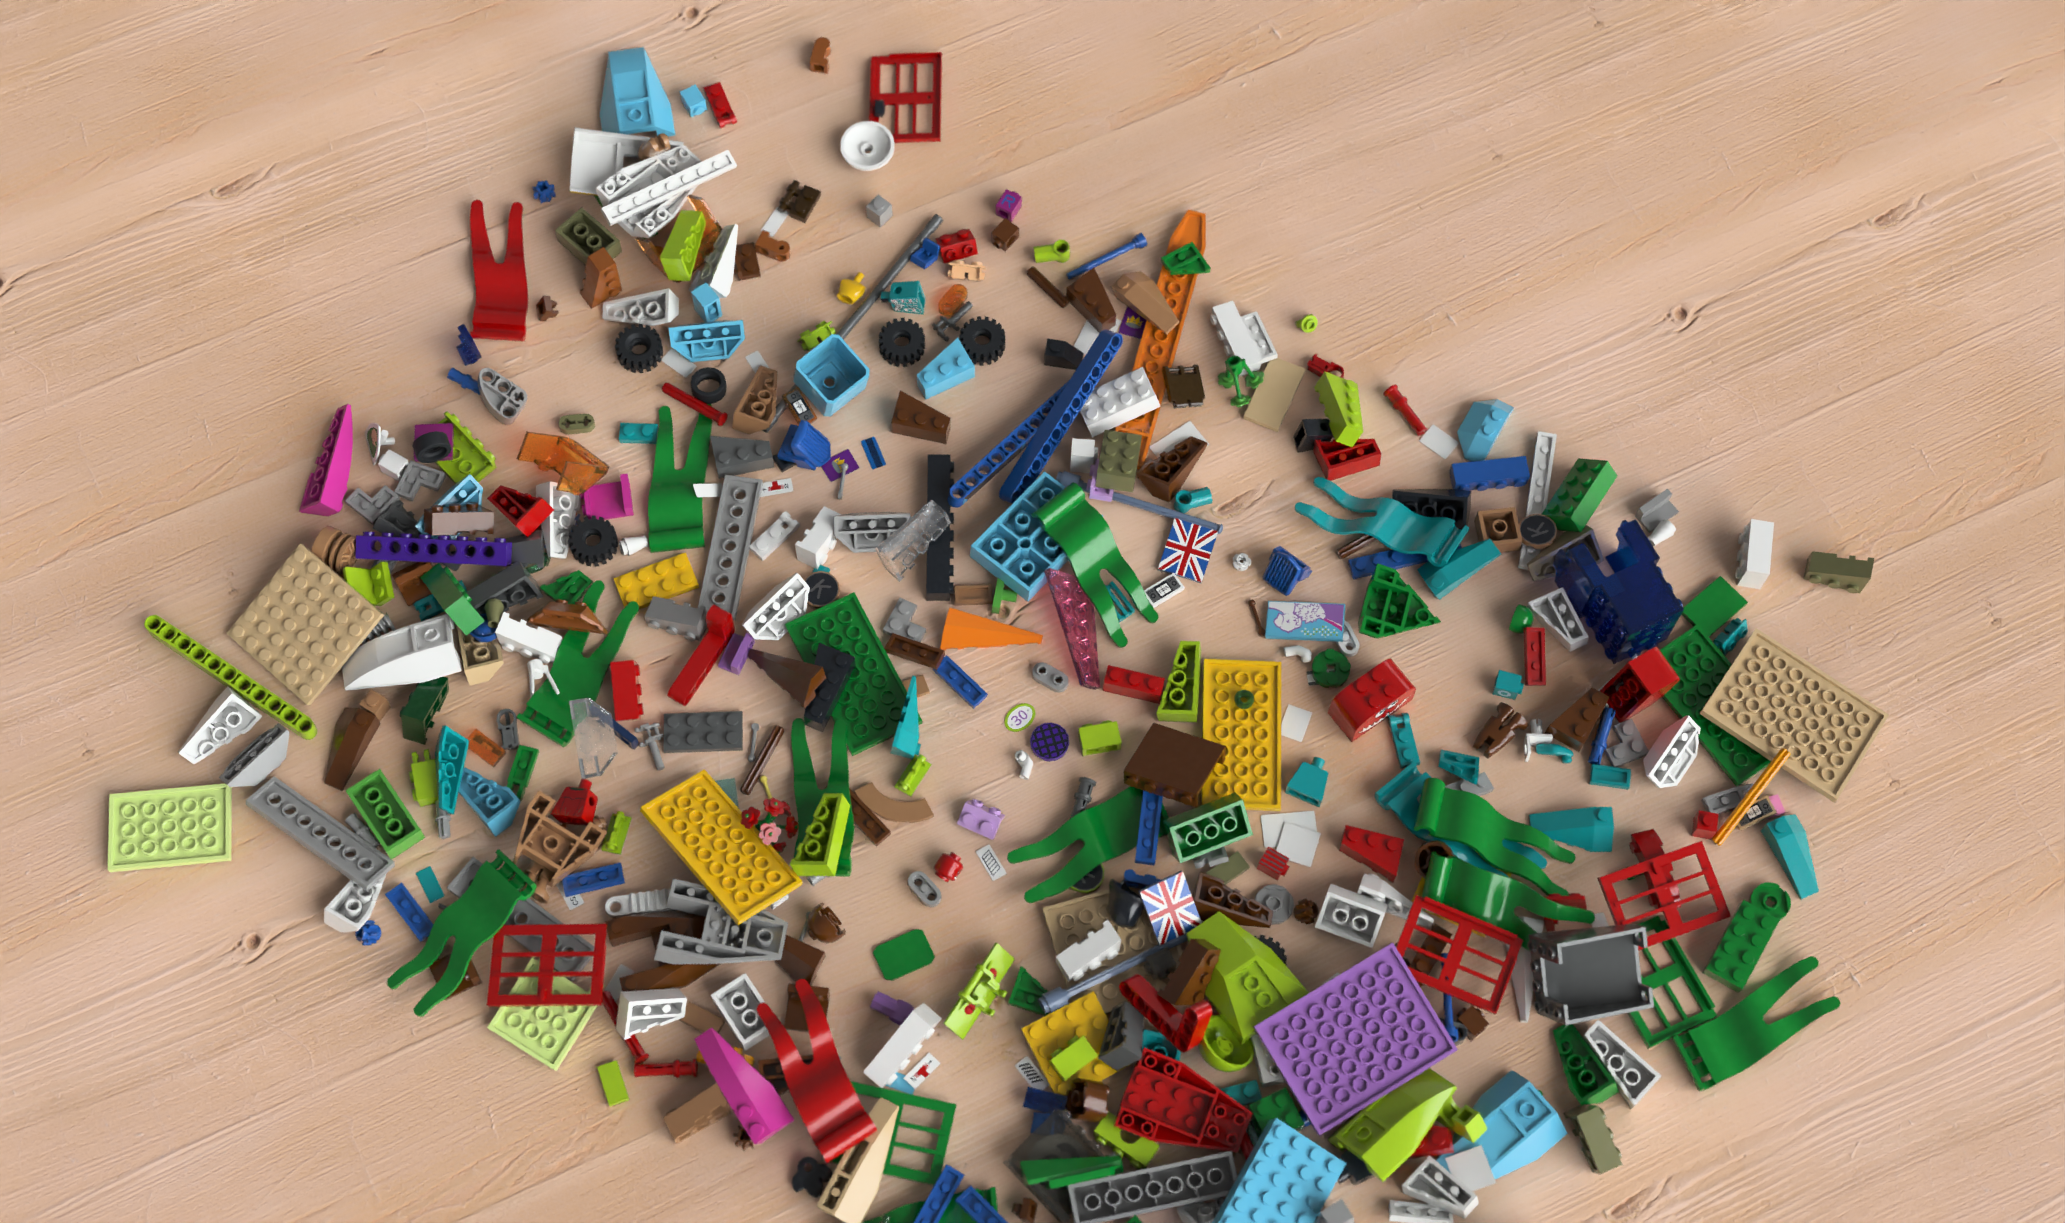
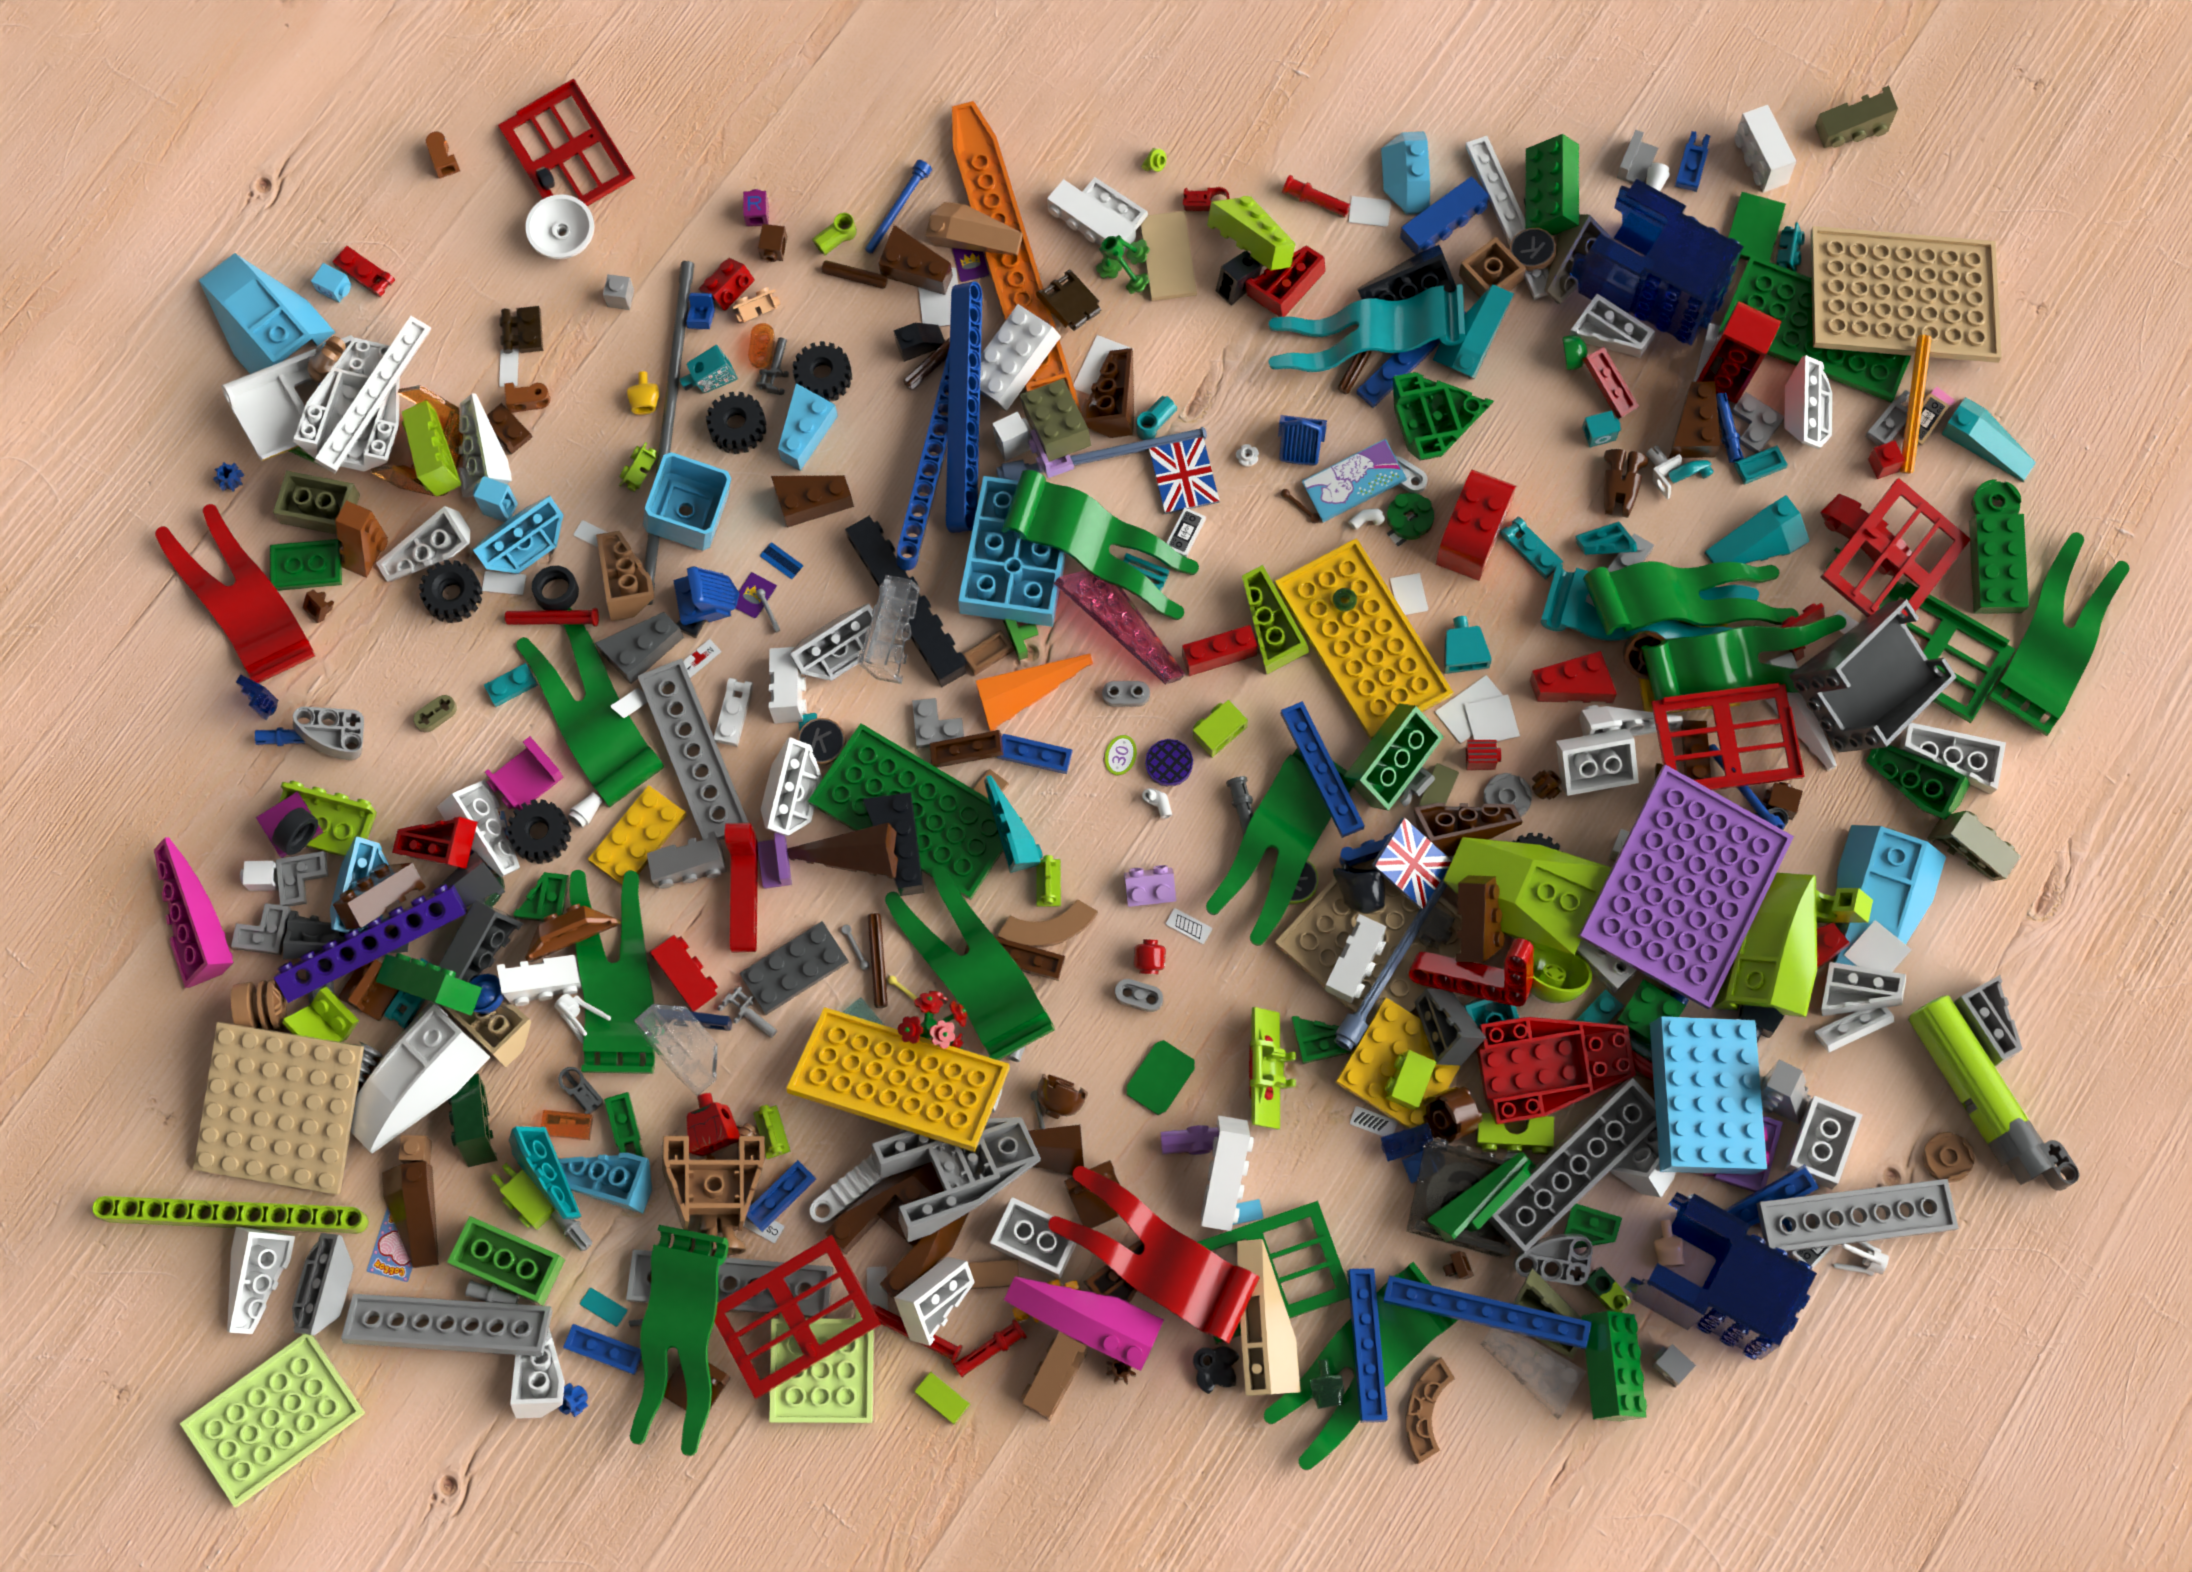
camera: 25 degrees left, 5 degrees up
(314, 765) = (389, 1253): none -> sticker
(375, 439) = (220, 859): white shield -> none
(494, 610) = (484, 971): olive cone -> none
(556, 278) = (306, 564): none -> green tile
(567, 457) = (452, 757): clear orange windscreen -> none
(799, 406) = (670, 556): tile -> none
(824, 837) = (1006, 1008): lime wedge -> none
(922, 1070) = (1257, 1187): white sticker -> none
(1054, 377) = (927, 366): none -> reddish brown axle
(1173, 764) = (1318, 710): reddish brown panel -> none
(1185, 261) = (987, 164): green wing -> none
(1696, 535) = (1692, 163): none -> blue hinge

